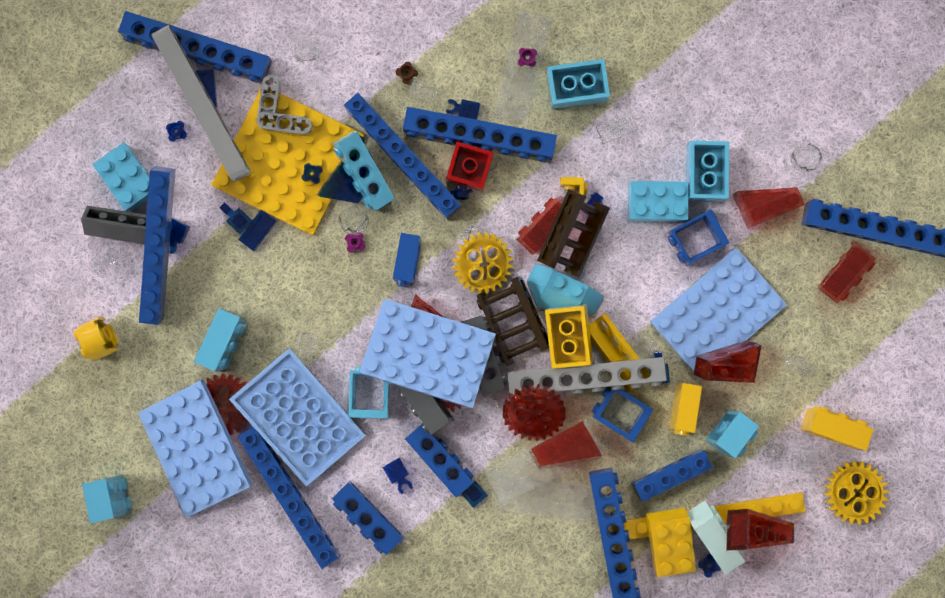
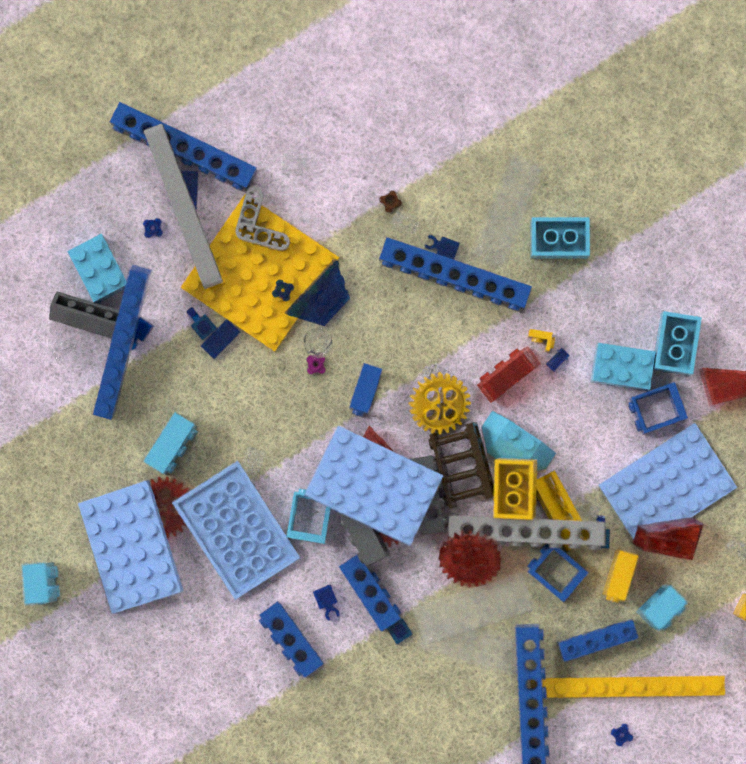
camera: 10 degrees right, 0 degrees up
(96, 339) = (48, 425): yellow brick -> none
(289, 497) = (216, 607): blue brick -> none
(382, 193) = (349, 321): medium azure brick -> none
(402, 156) = (375, 285): blue brick -> none
(461, 193) = (428, 330): clear blue plate -> none
(469, 166) = (440, 305): red brick -> none
(527, 52) = (513, 199): magenta plate -> none
(562, 227) = (523, 380): dark brown fence -> none
(565, 448) = (497, 597): clear red wedge -> none
(671, 542) = (586, 705): yellow brick -> none
(714, 535) = (631, 705): light aqua brick -> none
(756, 530) = (668, 703): clear red wedge -> none

